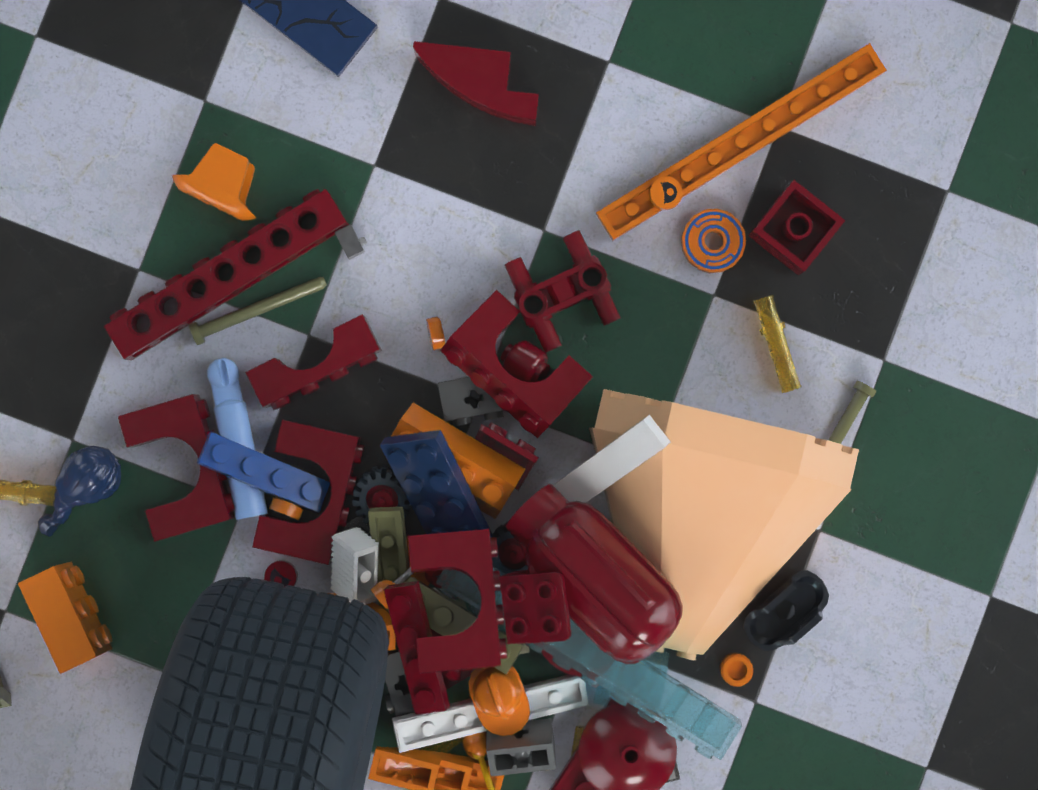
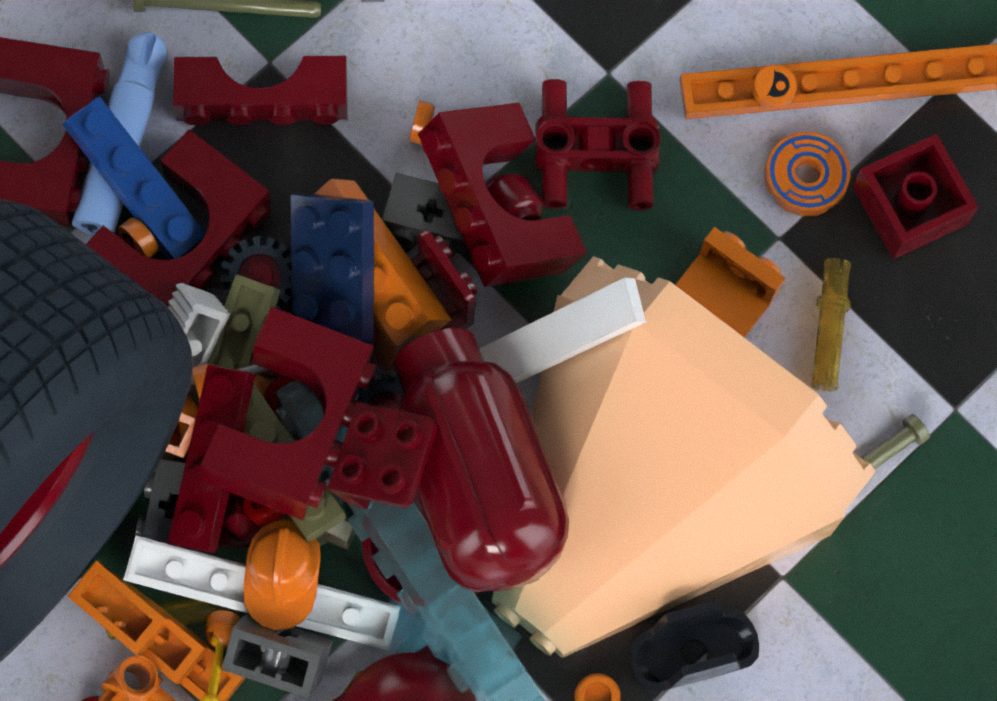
camera: 25 degrees right, 15 degrees down
(695, 358) = (732, 281): none -> orange bracket

